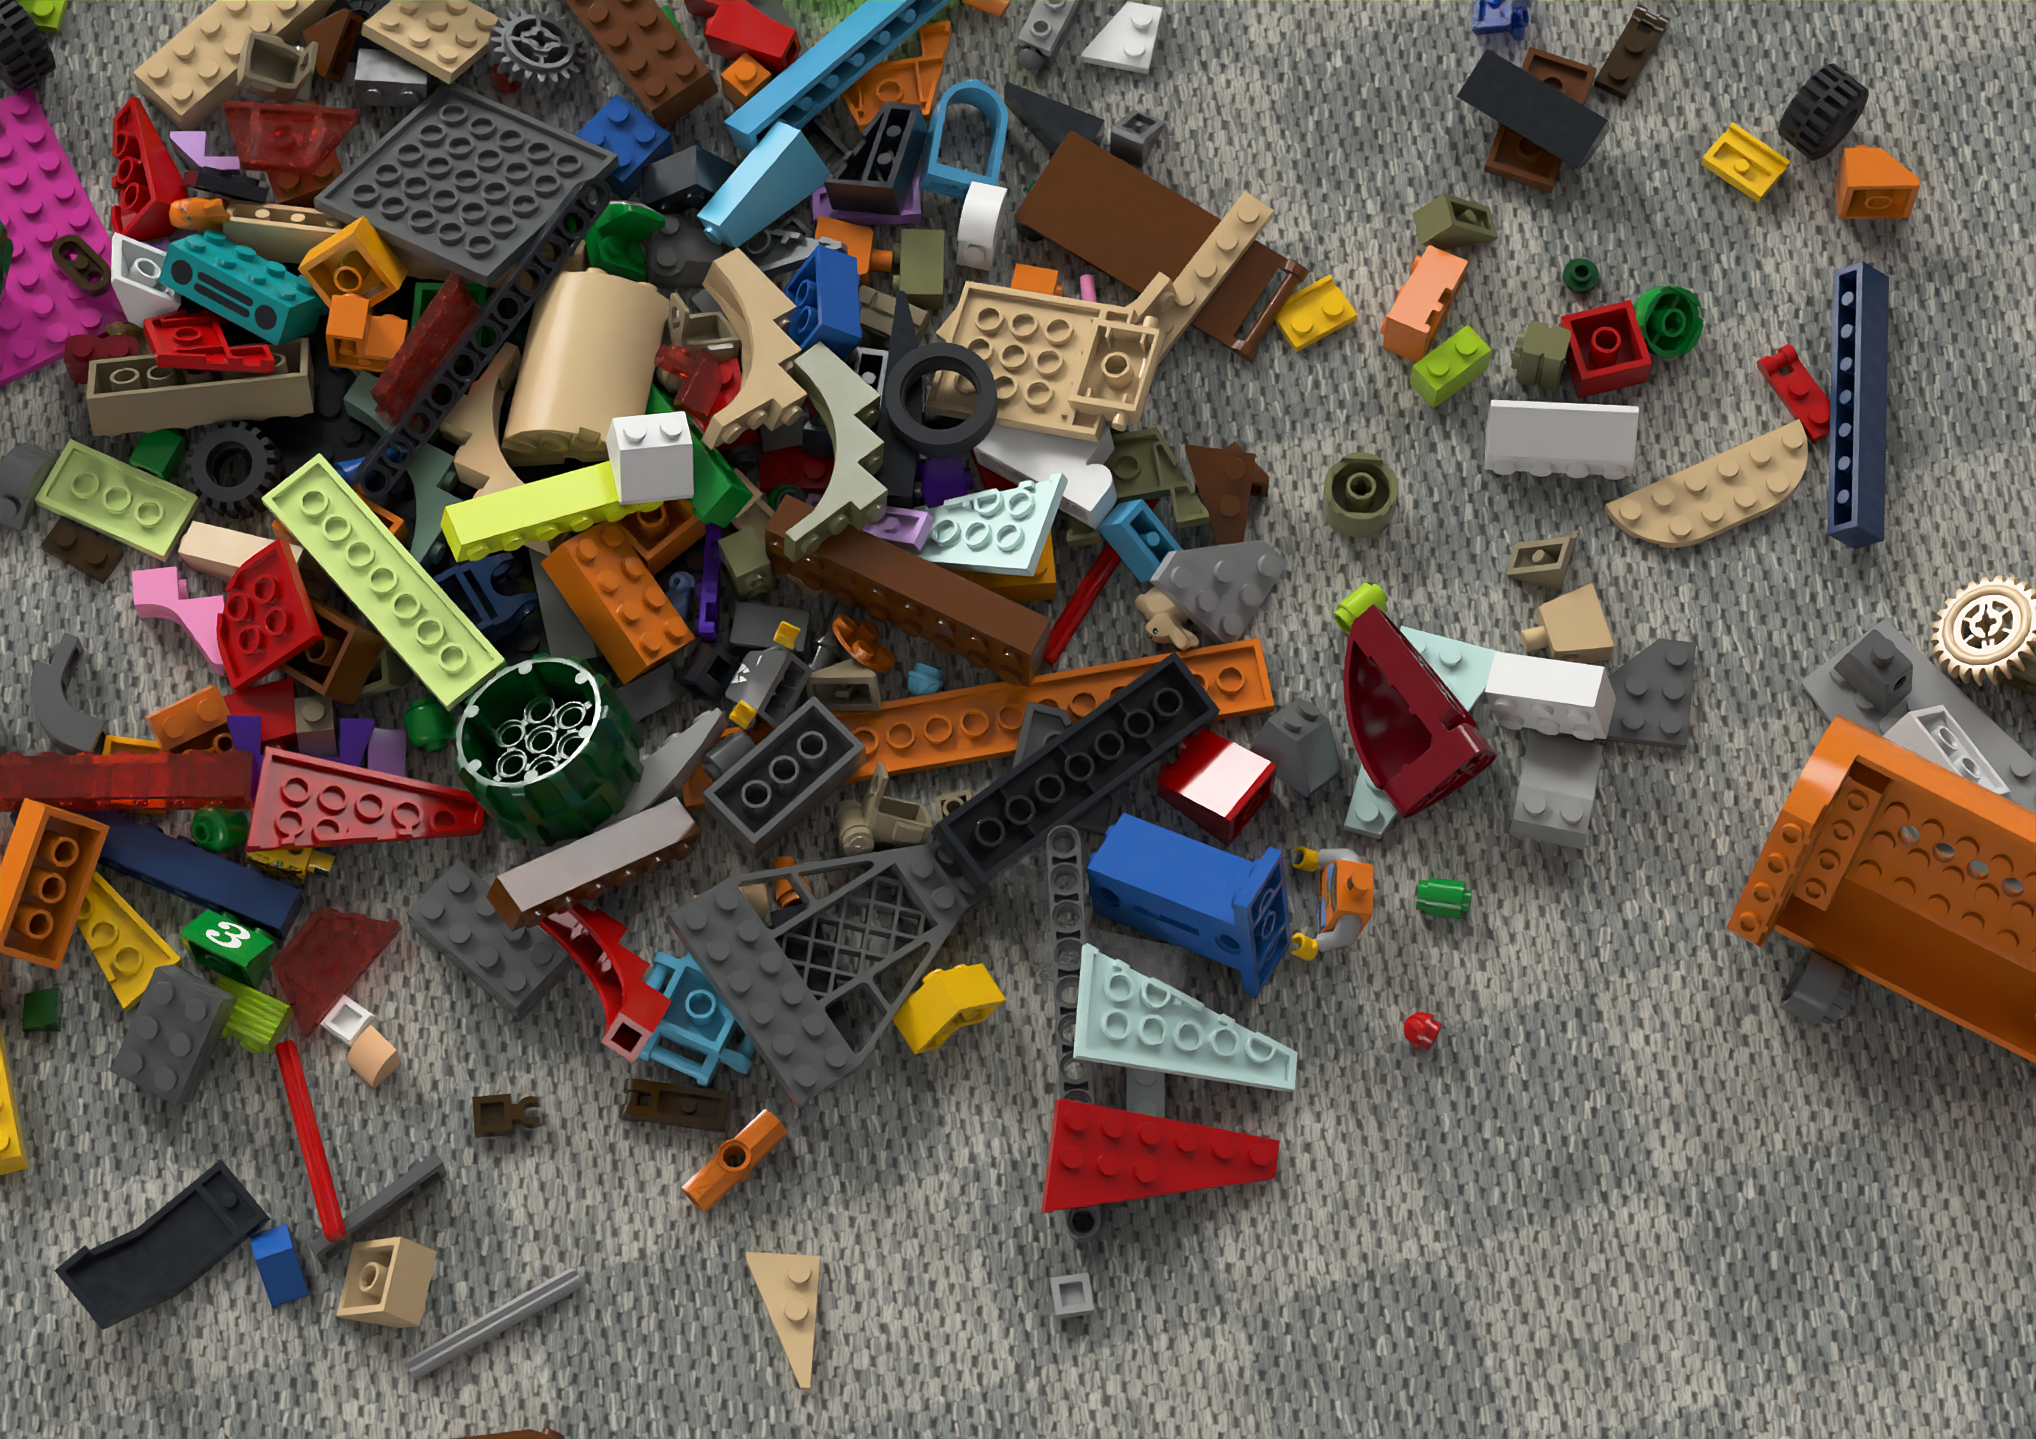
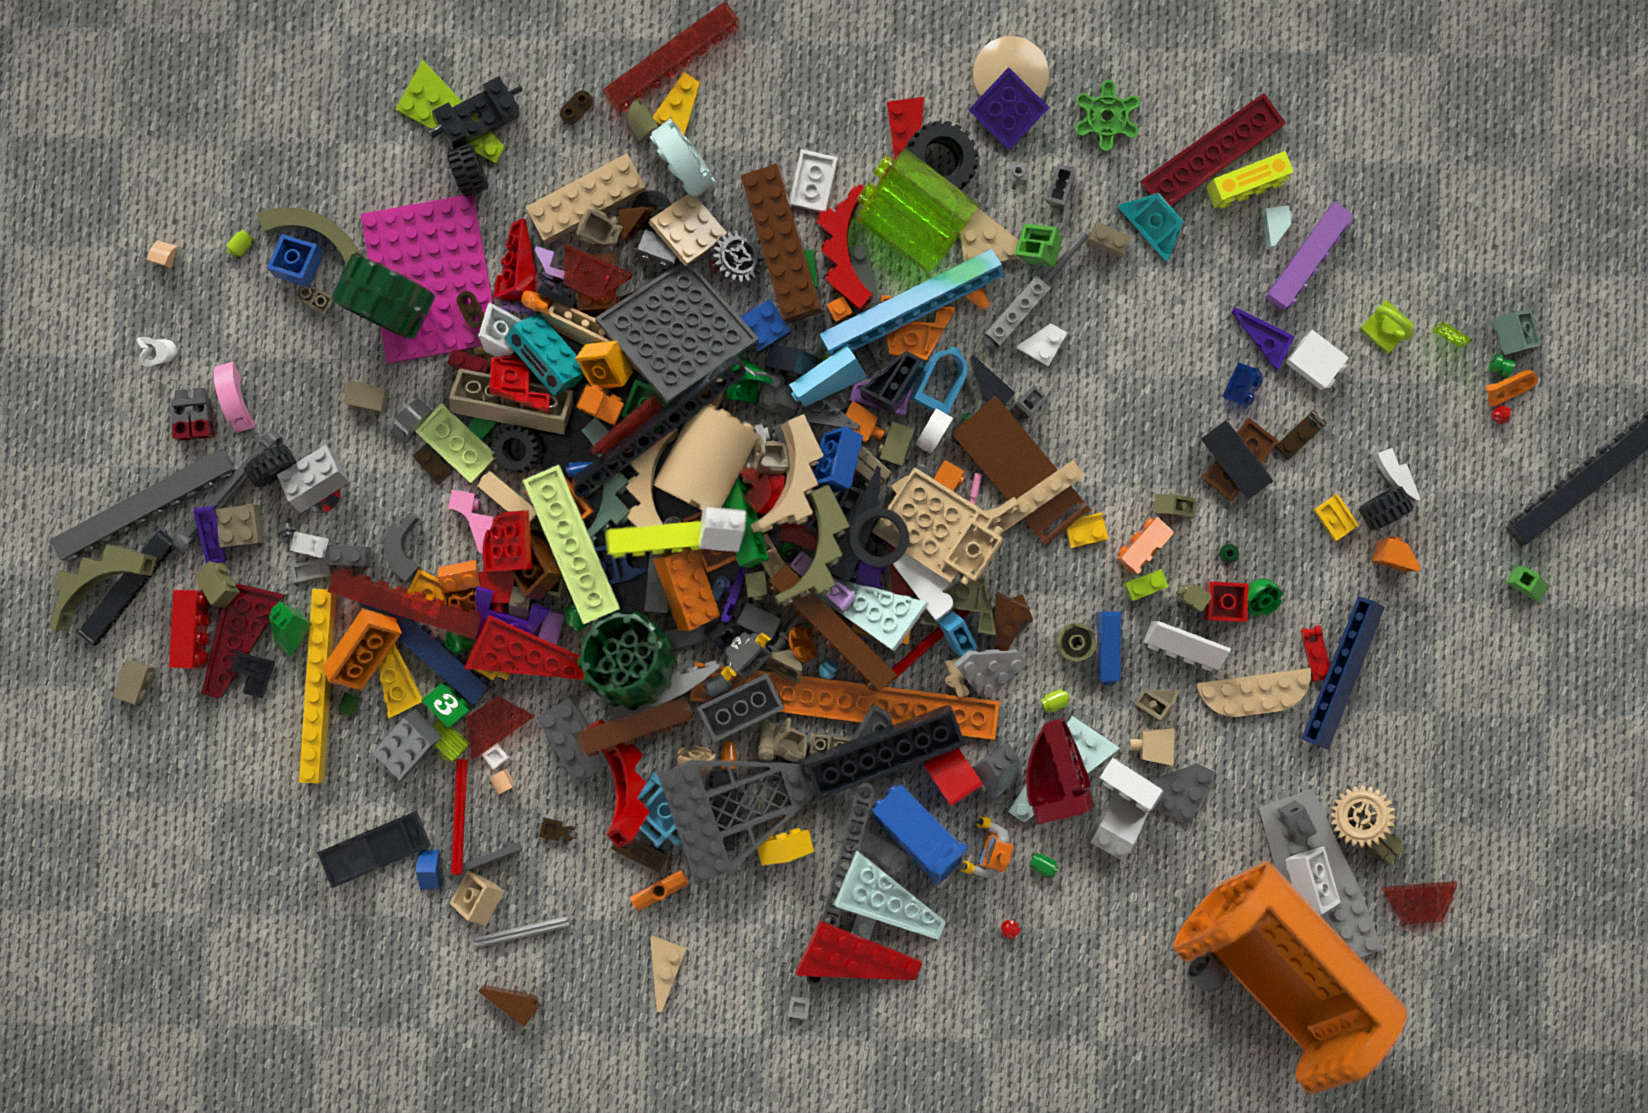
camera: 15 degrees right, 20 degrees up
(1422, 481) = (1108, 646): none -> blue slope
(1808, 55) = (1396, 474): none -> white slope

